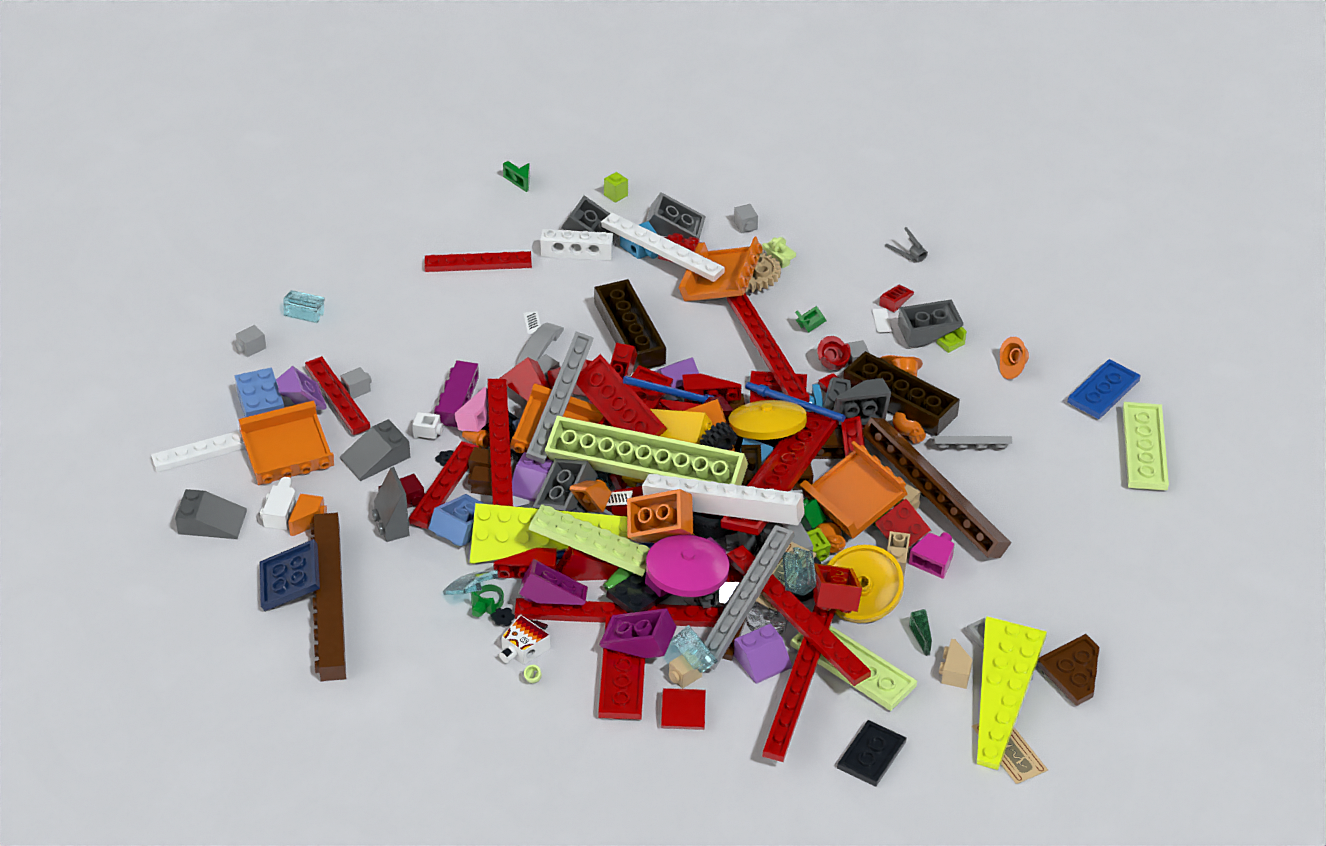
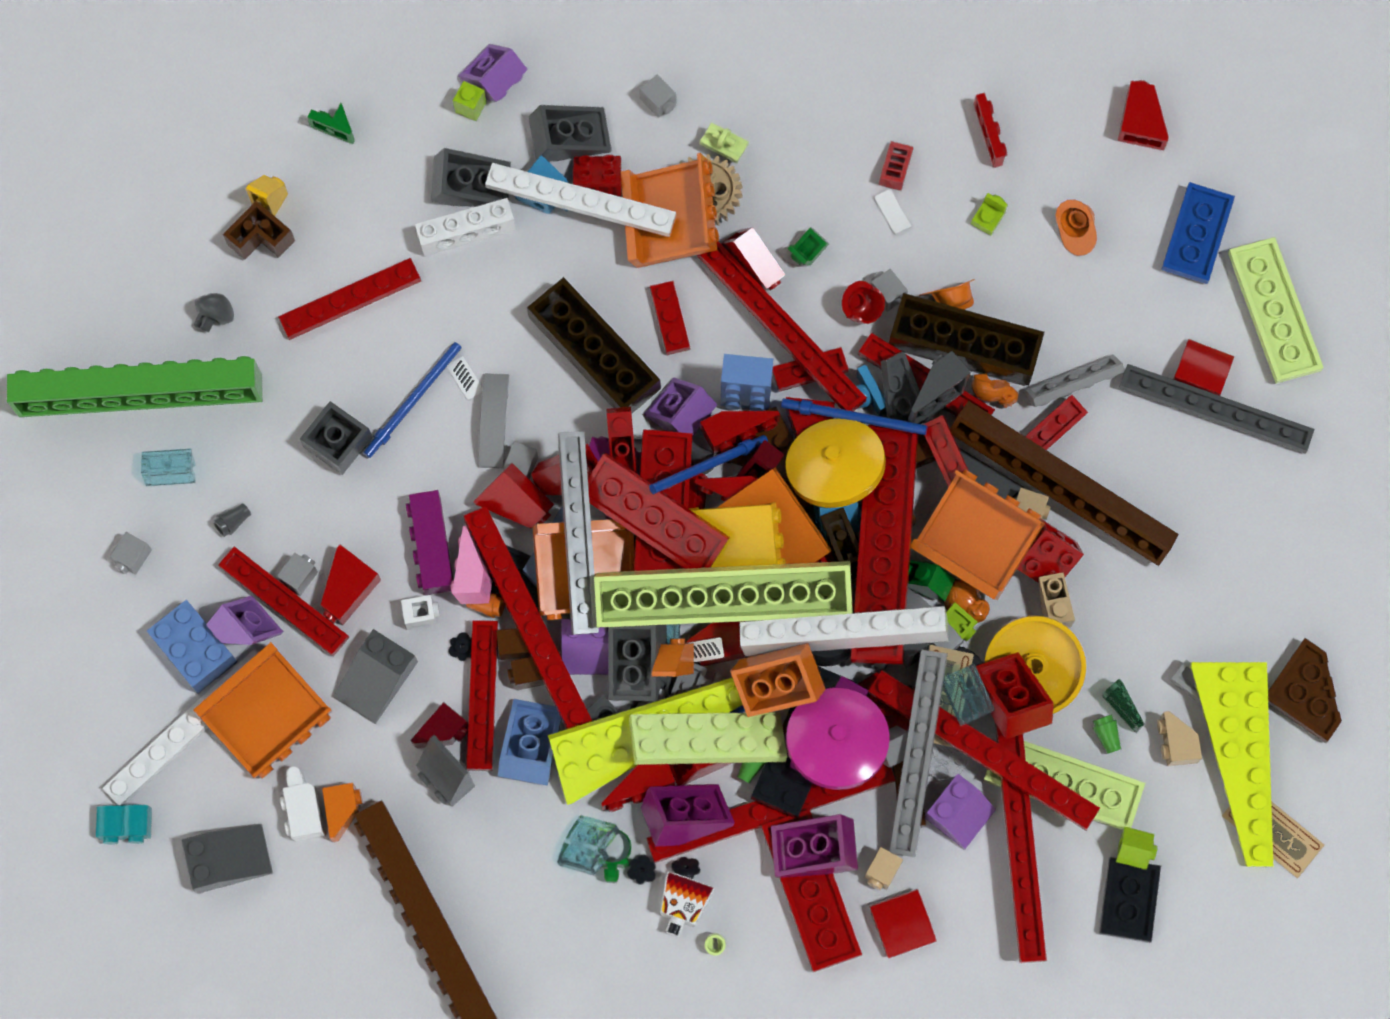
camera: 20 degrees left, 30 degrees up
(152, 475) = (123, 822): none -> teal brick
(289, 575) = (370, 917): dark blue plate -> none
(308, 258) = (134, 387): none -> bright green brick
(328, 344) = (230, 520): none -> dark grey cone
(383, 237) = (213, 308): none -> dark grey piece
(385, 399) = (347, 586): none -> red slope
(425, 320) = (336, 438): none -> dark grey brick
(436, 207) = (258, 227): none -> reddish brown brick
(453, 194) = (267, 192): none -> yellow slope
(458, 332) = (383, 435): none -> blue bar
(643, 177) = (494, 71): none -> medium lavender slope
(692, 330) = (670, 317): none -> red plate
(694, 649) = (888, 848): clear light blue hinge -> none
(719, 437) = (801, 538): black tyre -> none
(727, 358) = (746, 382): none -> medium blue brick
(769, 309) = (754, 257): none -> slope
(890, 716) = (1136, 848): none -> lime brick
(901, 642) = (1107, 732): none -> bright green cone
(917, 252) = (894, 75): dark grey plant -> none
(928, 322) = (957, 204): dark grey slope -> none
(933, 554) = (1096, 581): dark pink torso -> none
(950, 458) = (1057, 423): none -> red plate
(973, 295) = (990, 130): none -> red plate
(1074, 462) = (1203, 367): none -> red slope
(1075, 486) = (1216, 408): none -> dark grey plate
(1088, 318) = (1143, 118): none -> red slope

